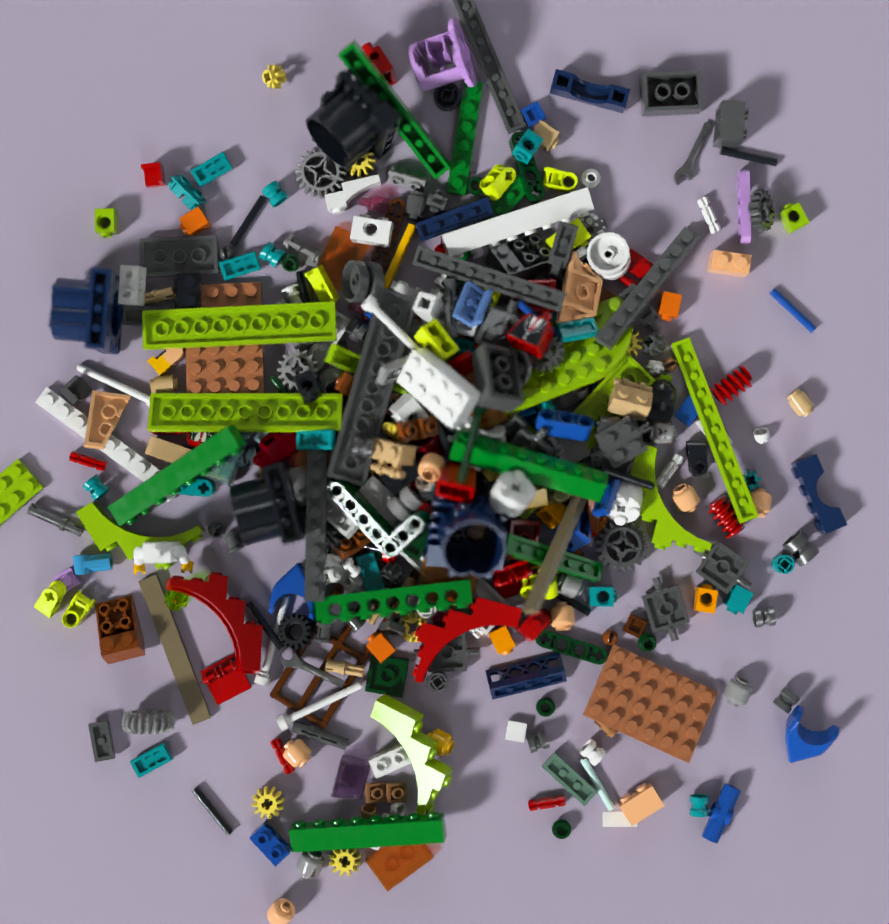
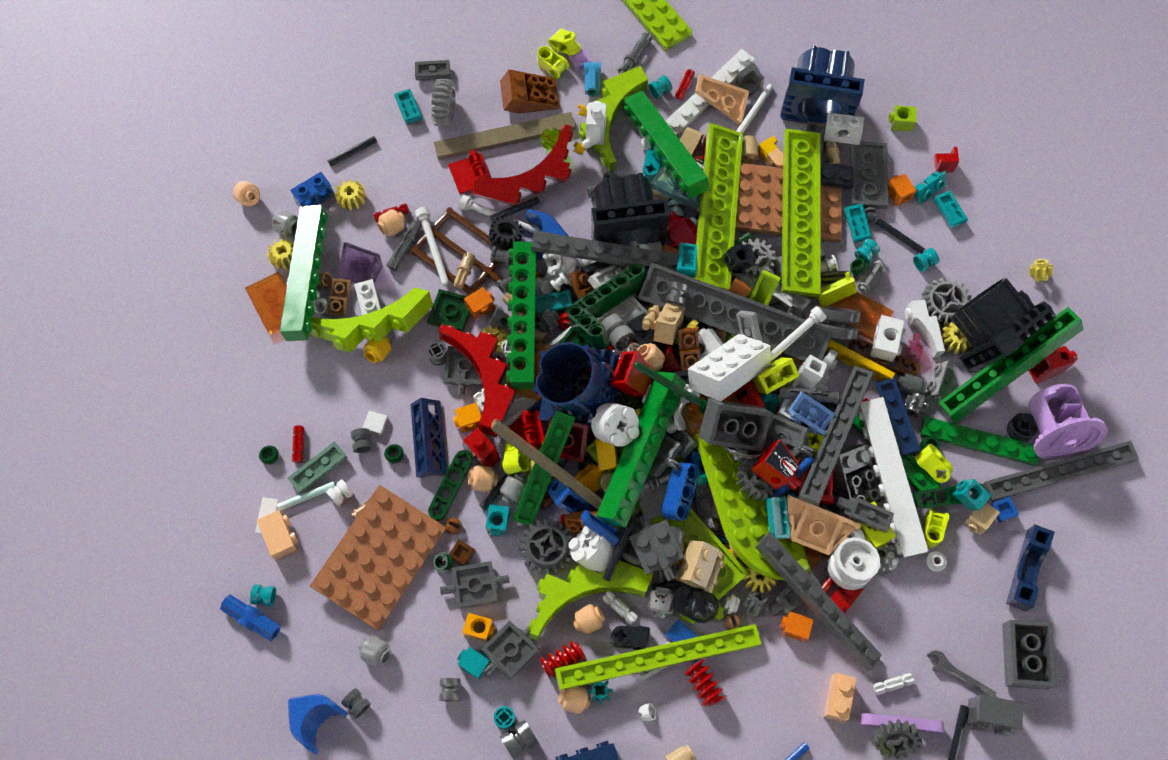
camera: 100 degrees right, 20 degrees down
(298, 662) = (476, 232): flat silver piece -> none

